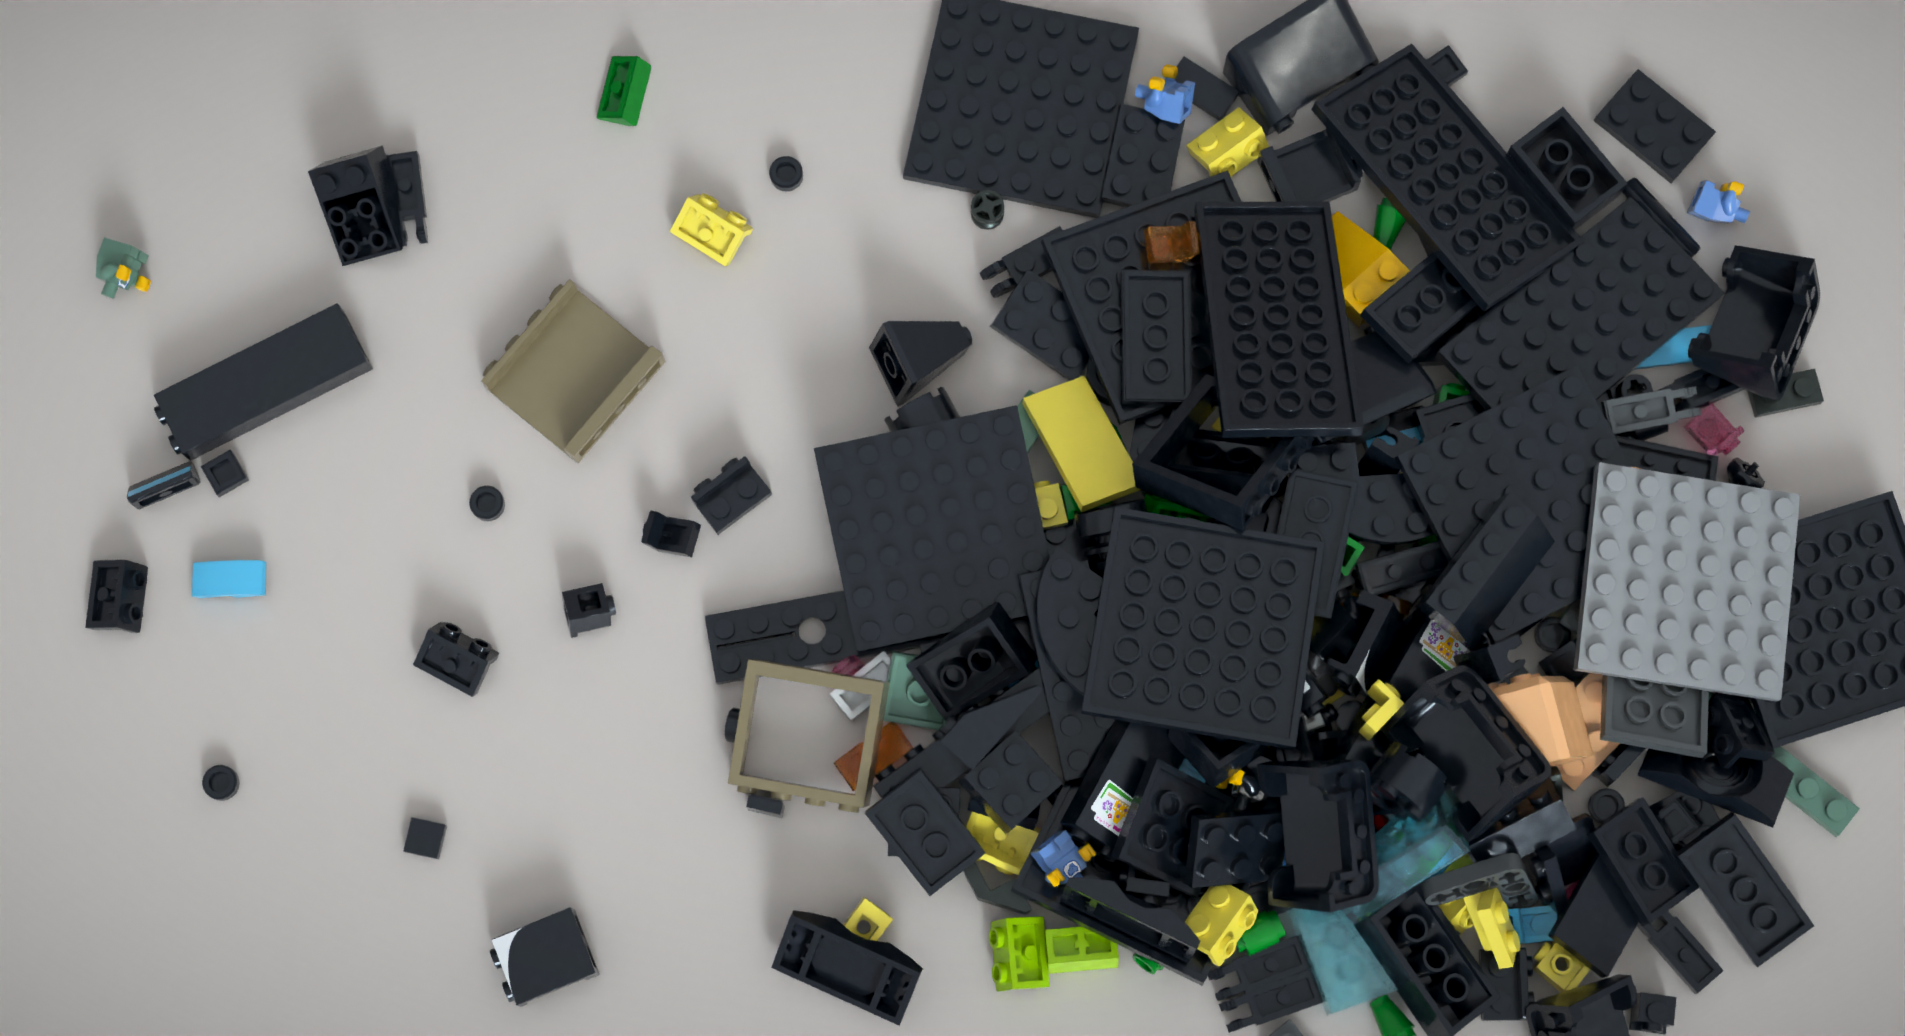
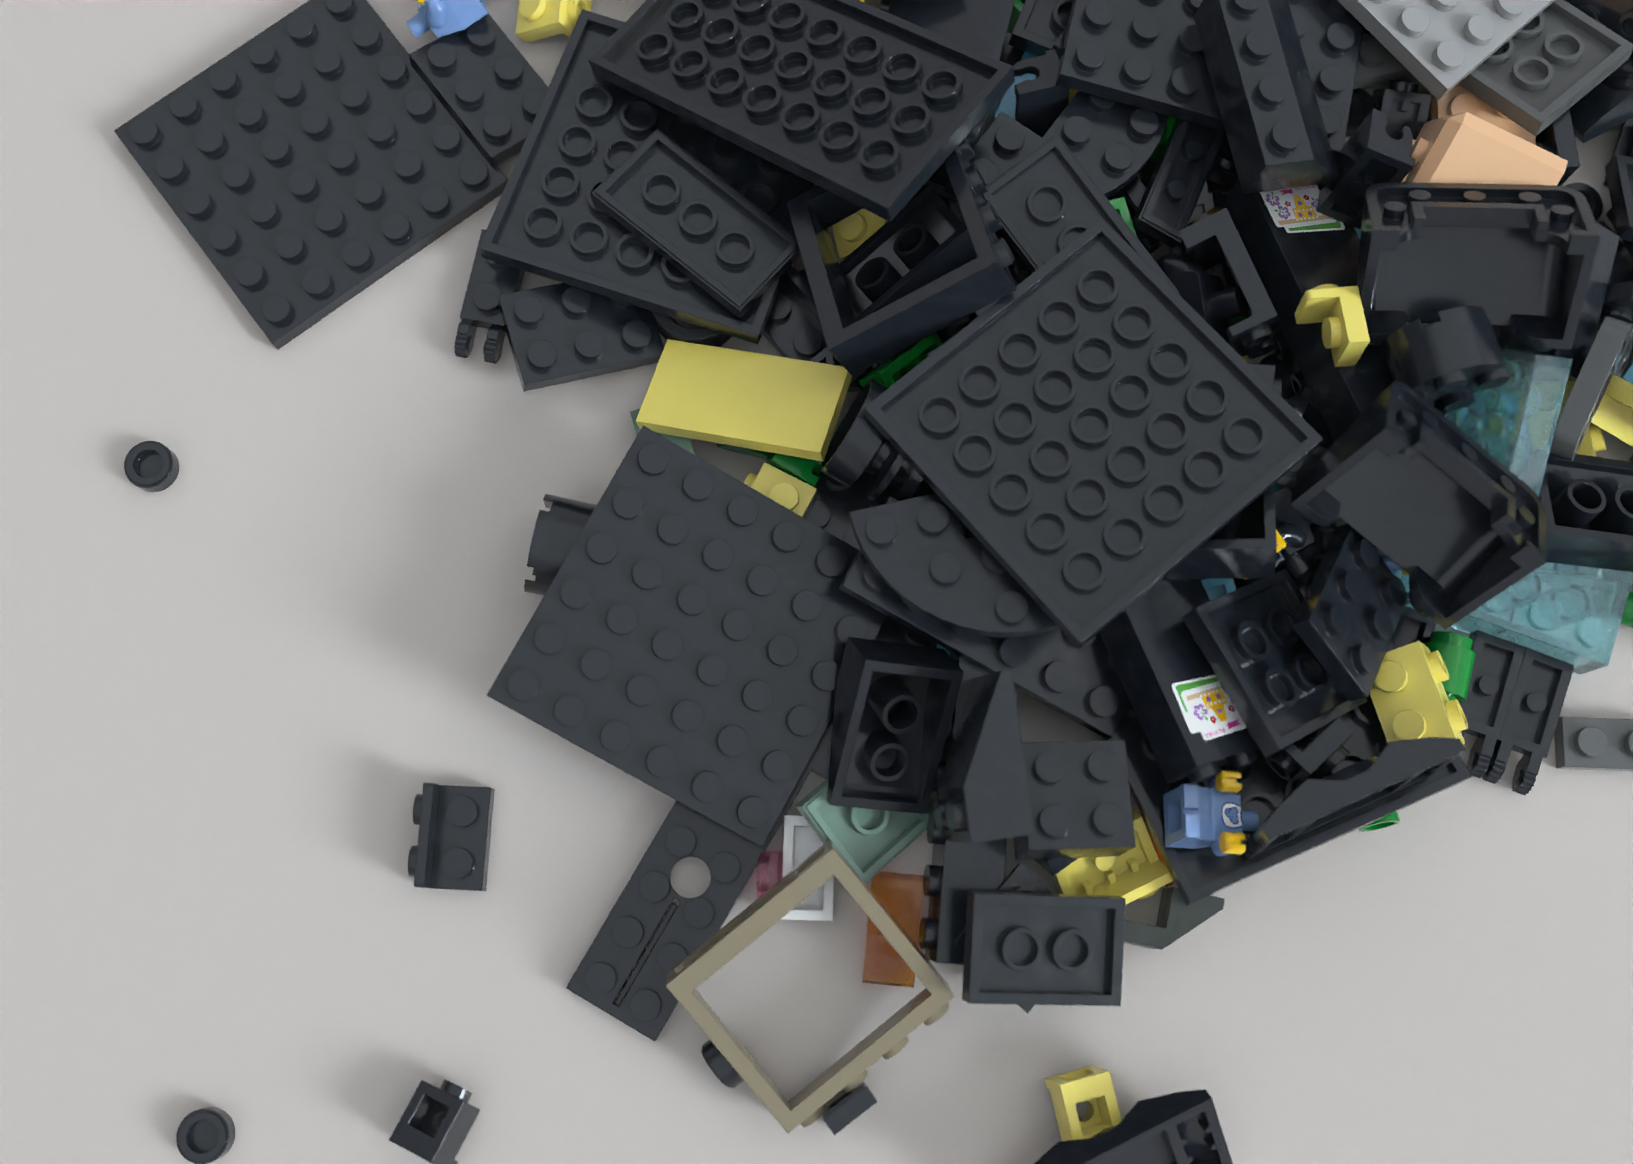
camera: 55 degrees left, 0 degrees up
(572, 371) = (142, 900): dark tan panel -> none
(670, 534) = (436, 947): black bracket -> none
(711, 228) = (130, 600): light yellow bracket -> none
(916, 353) = (480, 494): black slope -> none
(986, 202) = (387, 277): pearl dark grey wheel -> none
(1019, 953) = (1257, 956): lime bracket -> none
(1079, 950) = (1307, 884): lime hinge -> none
(1172, 243) = (611, 117): clear orange bracket -> none

